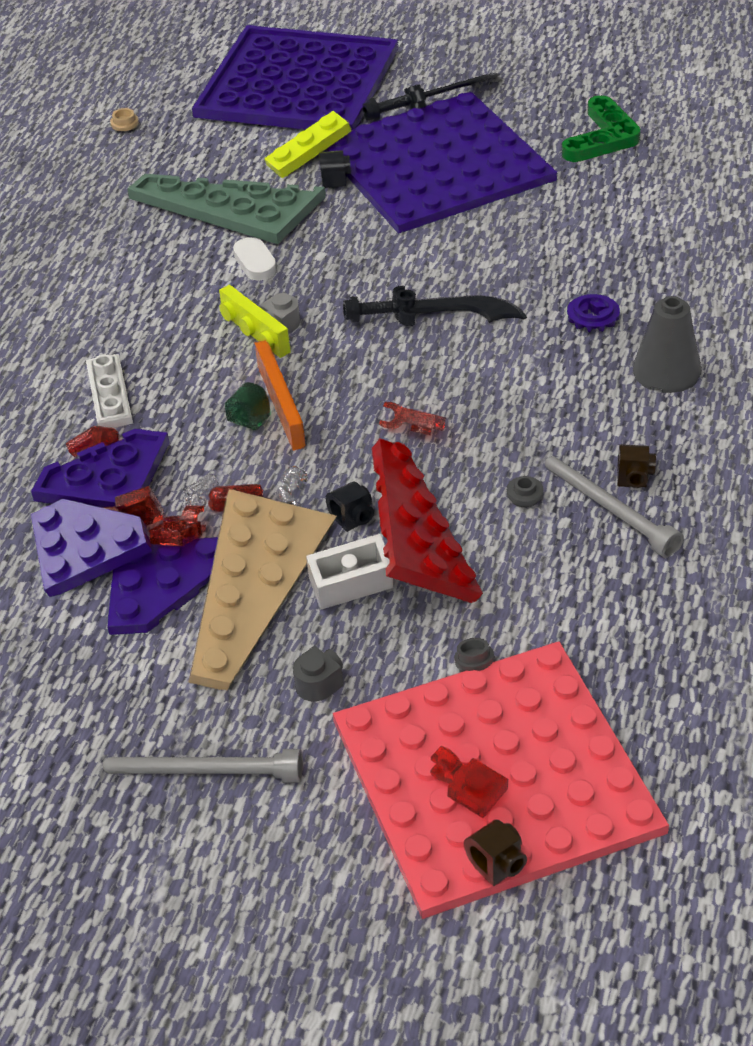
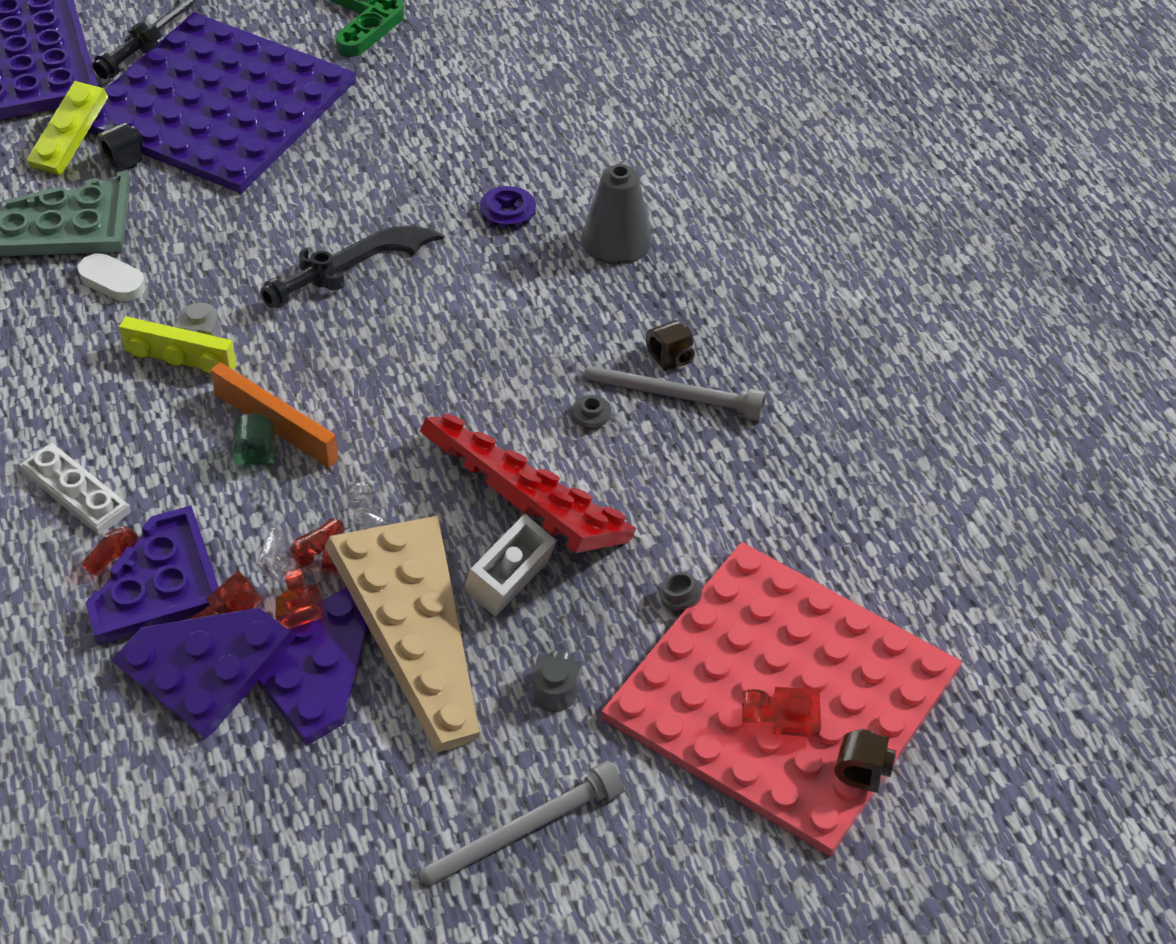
camera: 40 degrees left, 5 degrees up
(350, 505) = (445, 497): black plate -> none
(420, 421) = (439, 384): clear red plate -> none

